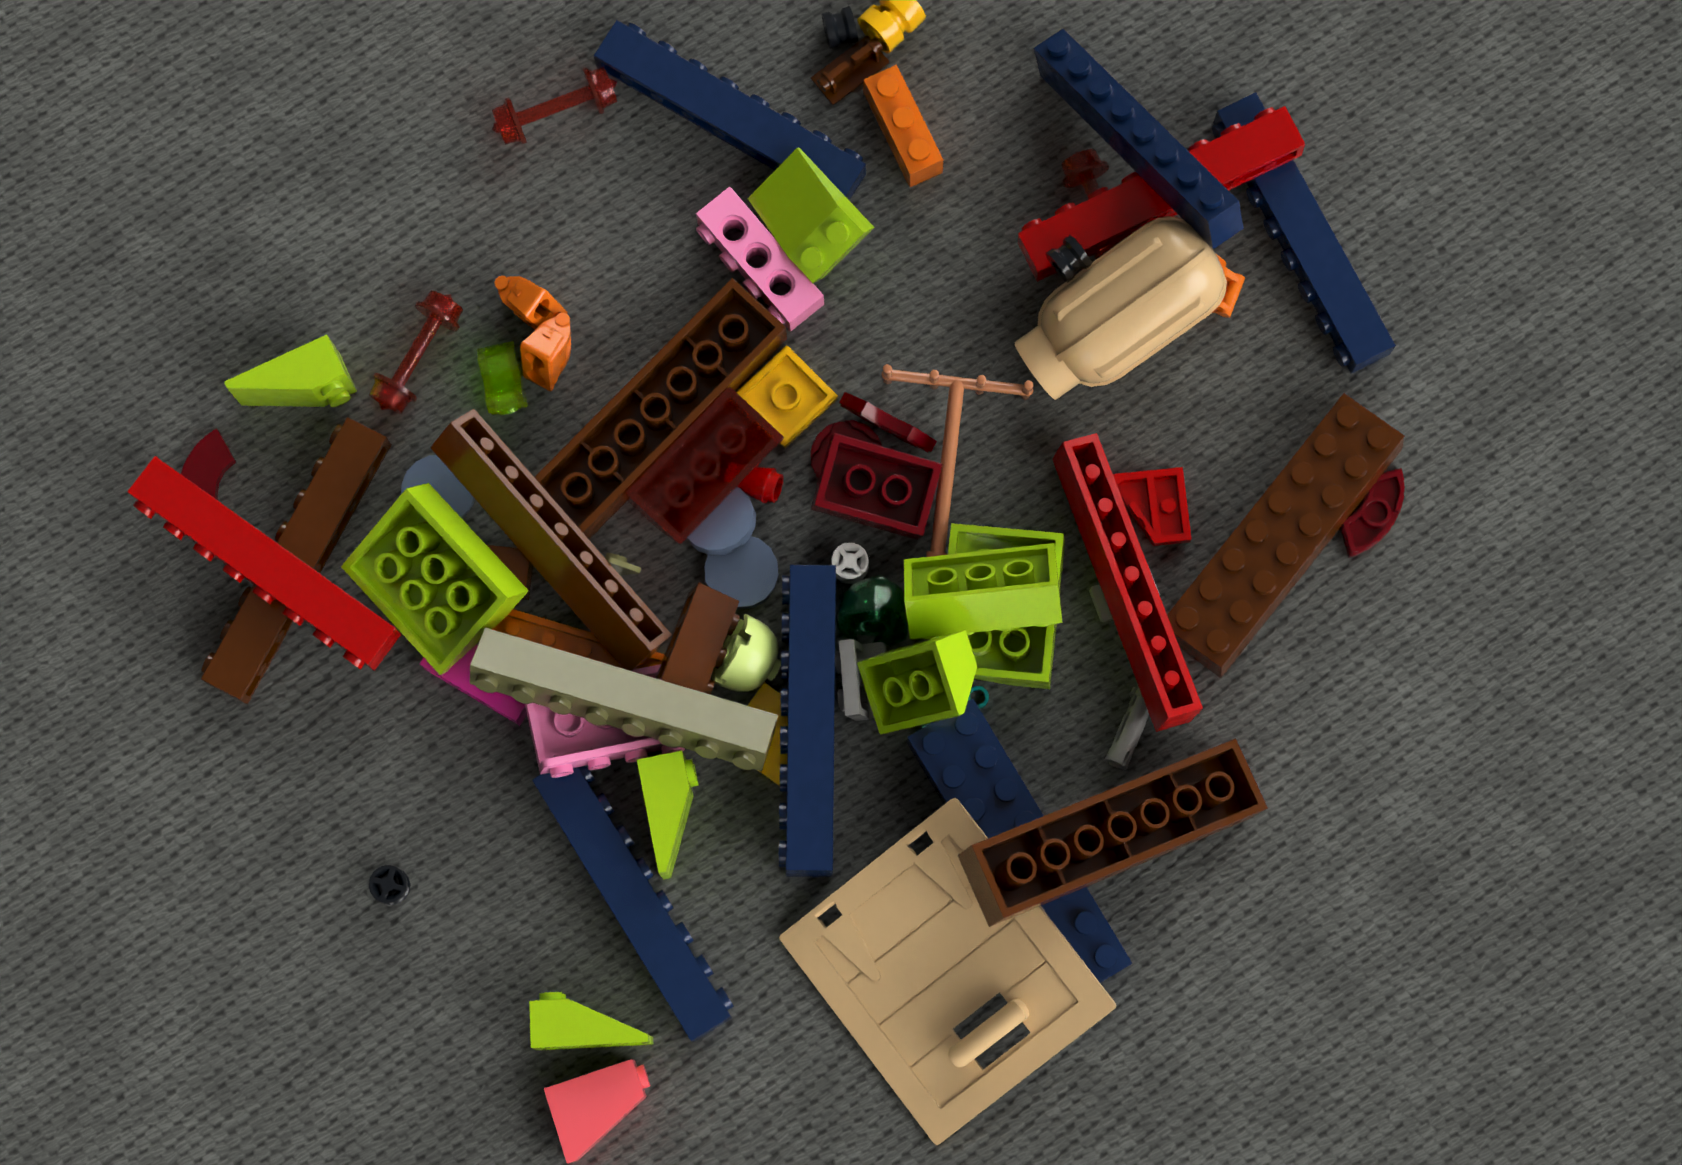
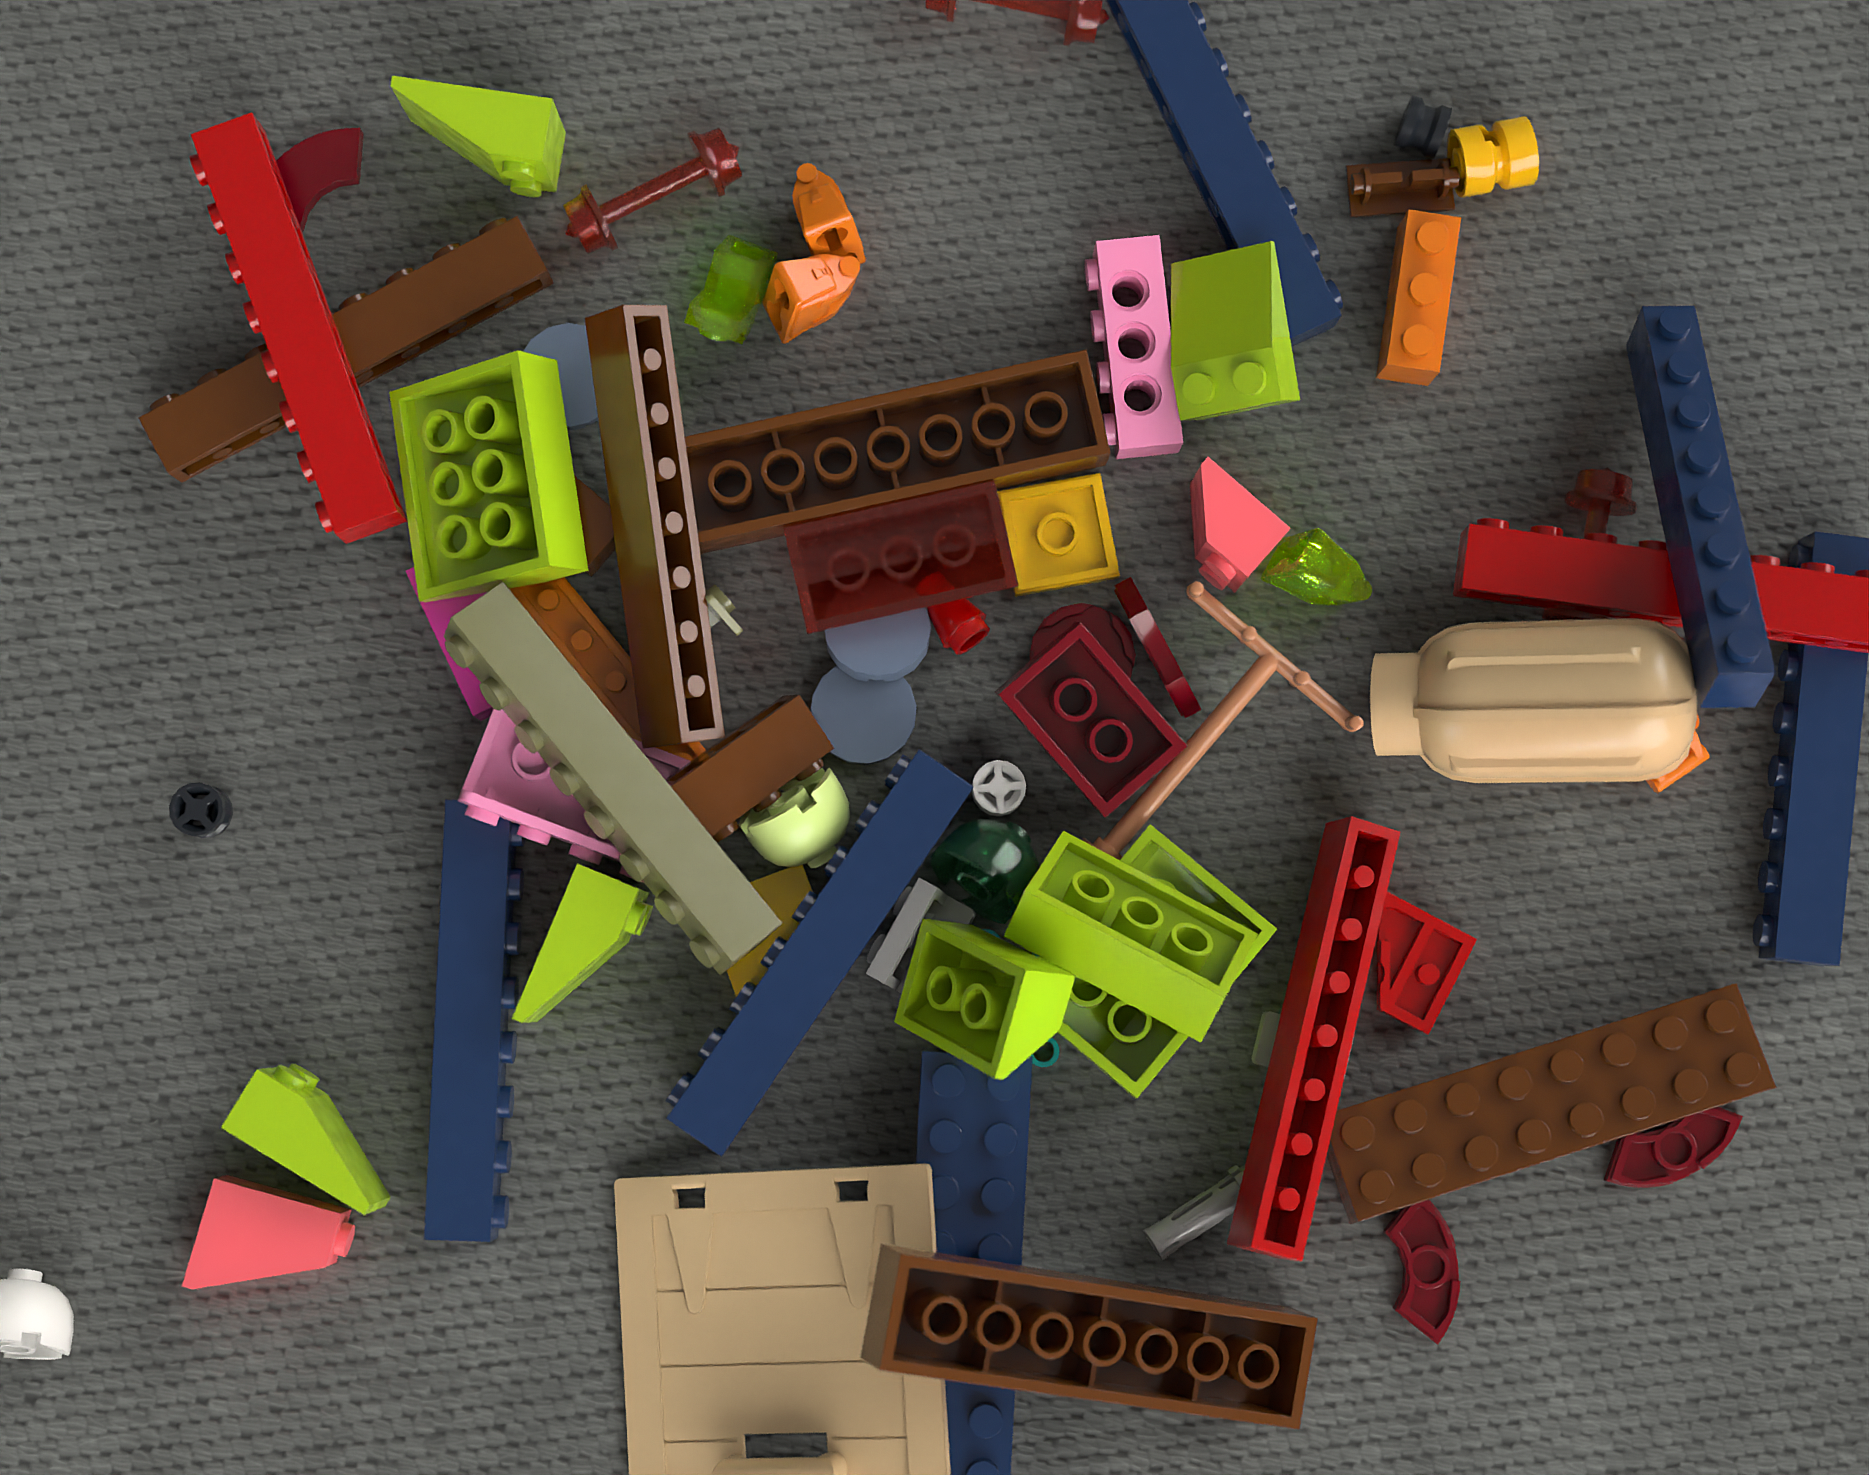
camera: 25 degrees right, 5 degrees up
(883, 325) = (1230, 527): none -> coral slope
(949, 318) = (1316, 570): none -> clear neon green piece
(1068, 258) = (1510, 598): black wheel -> none
(1283, 673) = (1429, 1268): none -> dark red tile

